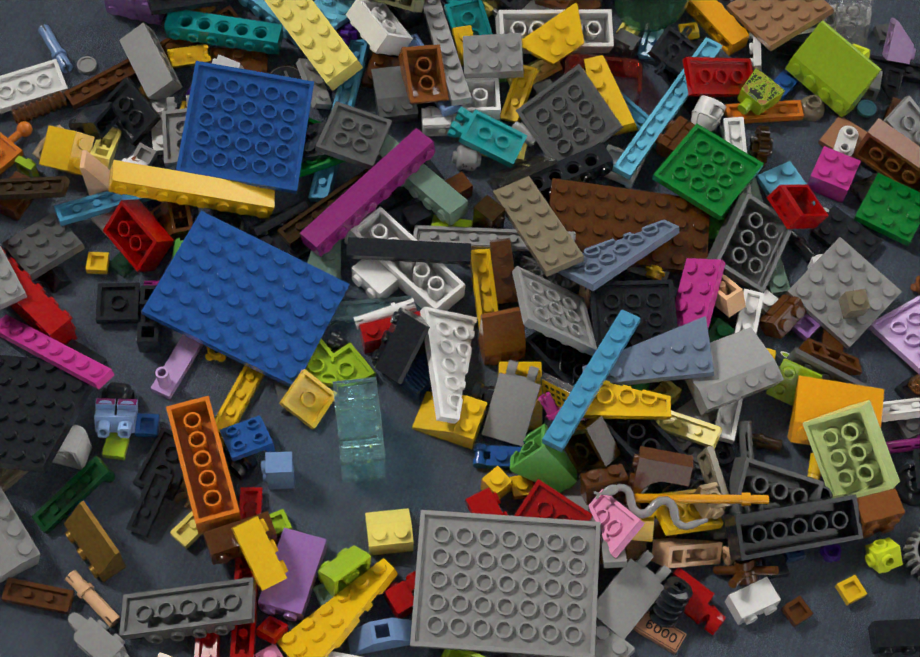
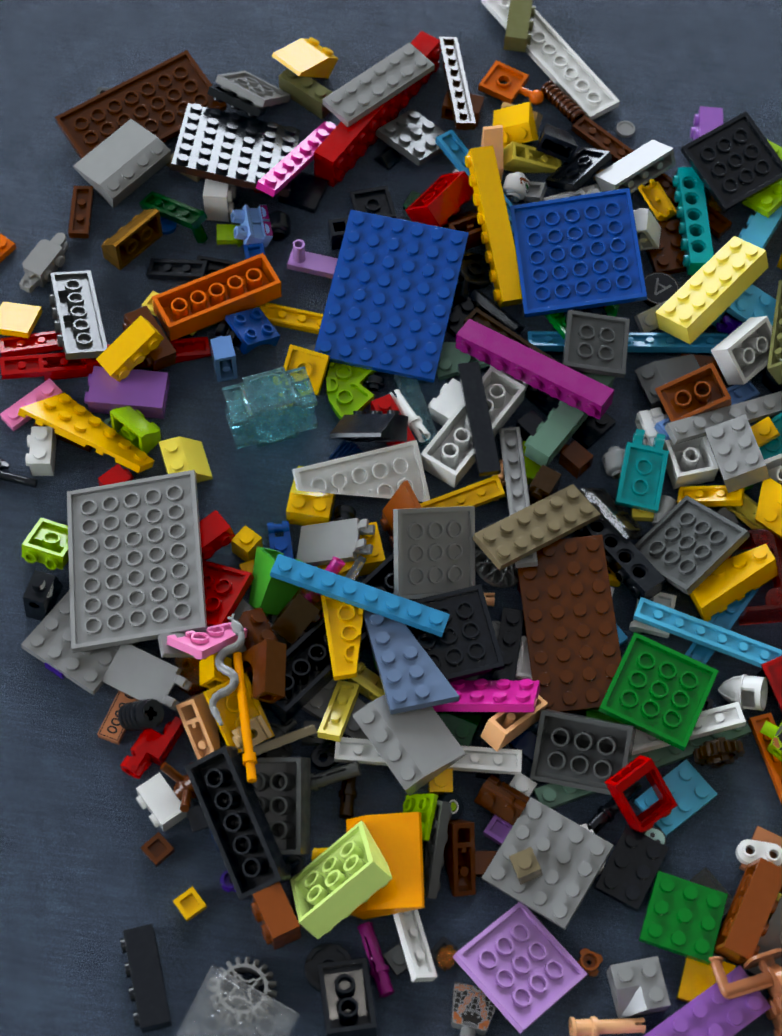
camera: 80 degrees right, 0 degrees up
(26, 167) = (494, 105): lime plate -> none
(55, 48) = (628, 102): medium blue pin -> none
(97, 262) = (410, 181): yellow plate -> none
(97, 603) = (89, 244): light nougat pin -> none
(272, 629) = (73, 386): red plate -> none
(280, 521) = (177, 372): lime plate -> none
(380, 636) = (76, 468): medium blue slope -> none
(502, 268) = (490, 502): reddish brown brick -> none
(612, 257) = (524, 608): sand blue wing -> none
(654, 272) = (521, 659): yellow plate -> none
(673, 136) = (710, 656): reddish brown brick -> none
(833, 174) = (711, 843): dark pink brick -> none
(883, 555) = (232, 933): neon yellow brick -> none

